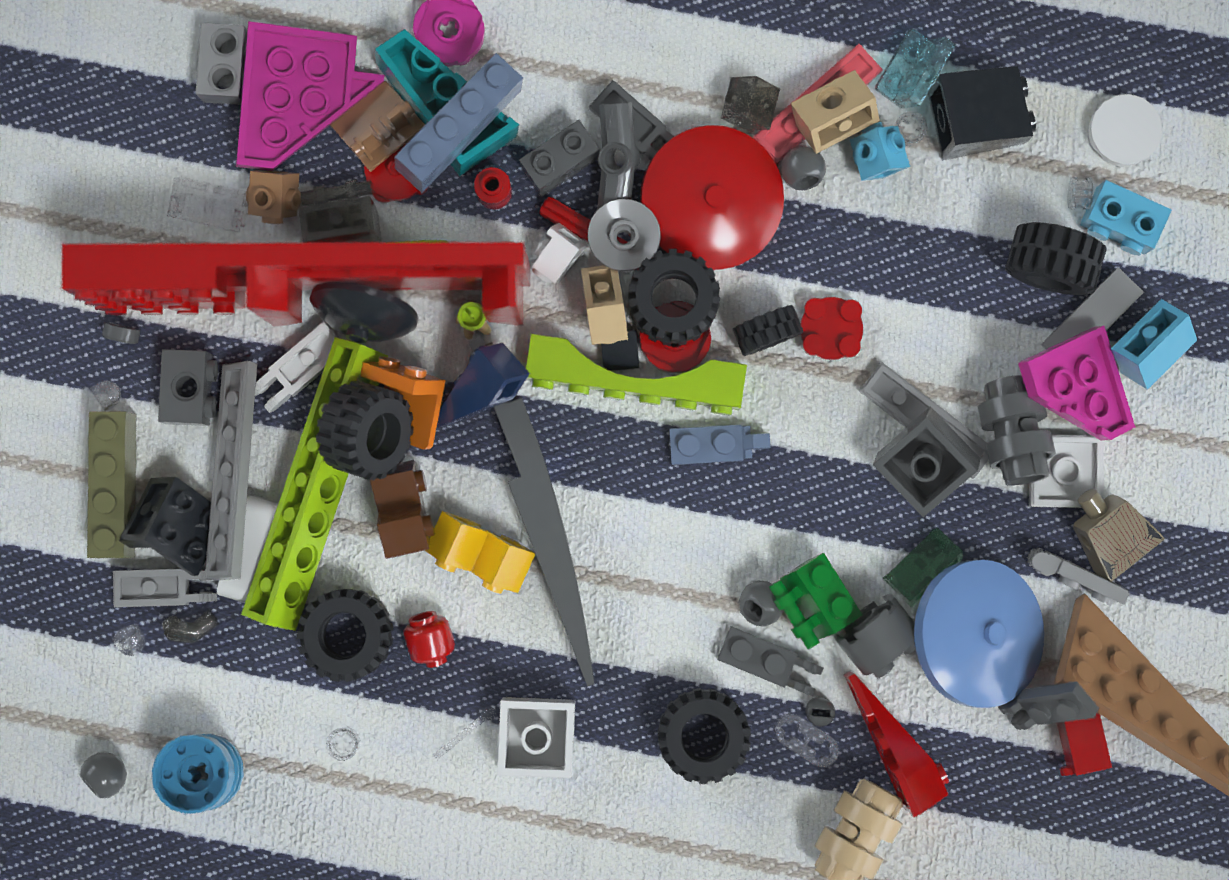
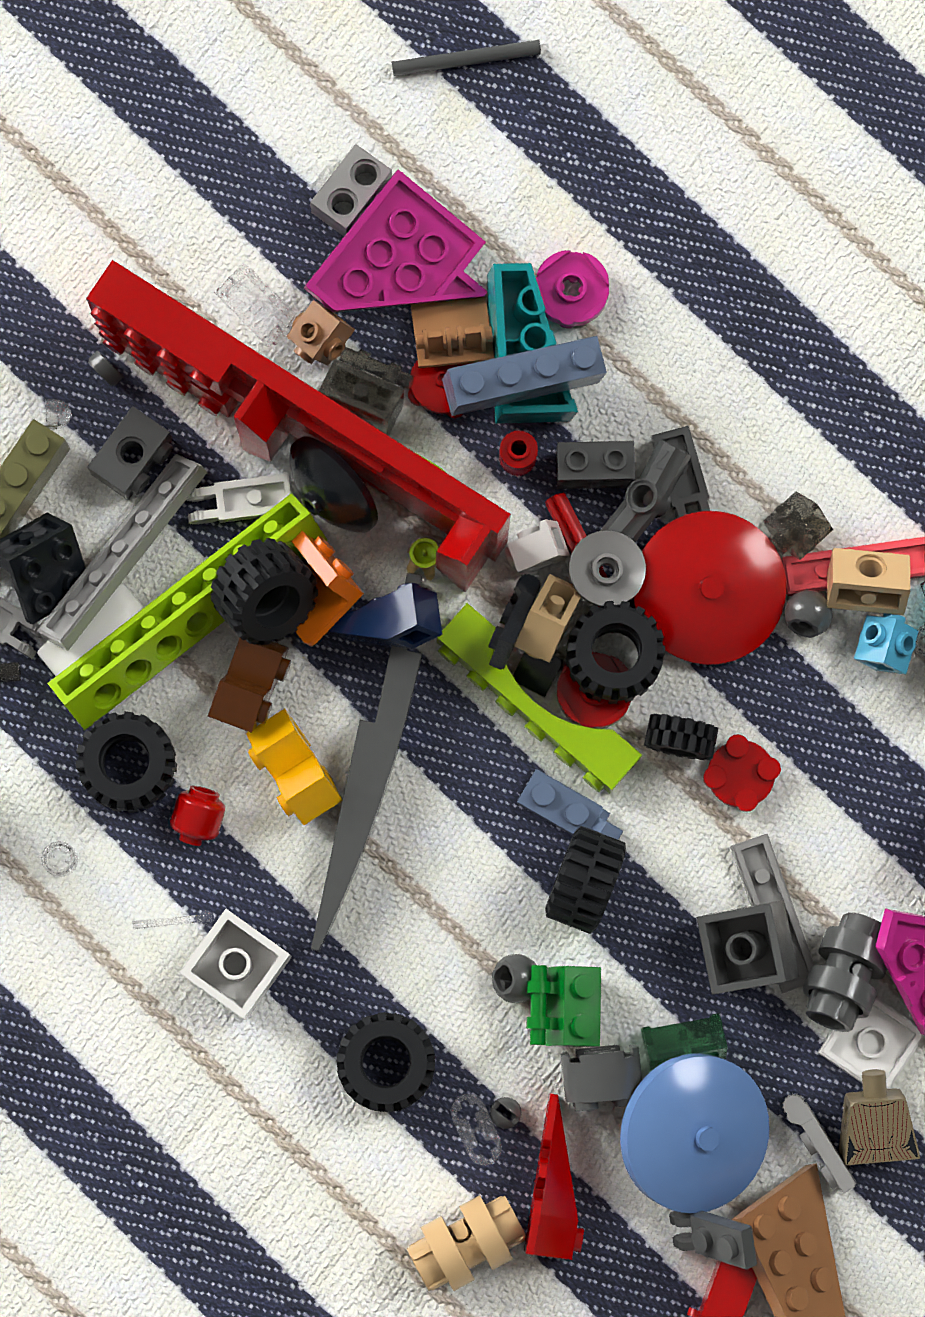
camera: 30 degrees right, 5 degrees down
(577, 322) = (513, 618): none -> black hinge
(765, 660) = (486, 1033): dark grey hinge -> none
(767, 492) = (585, 879): none -> black tyre

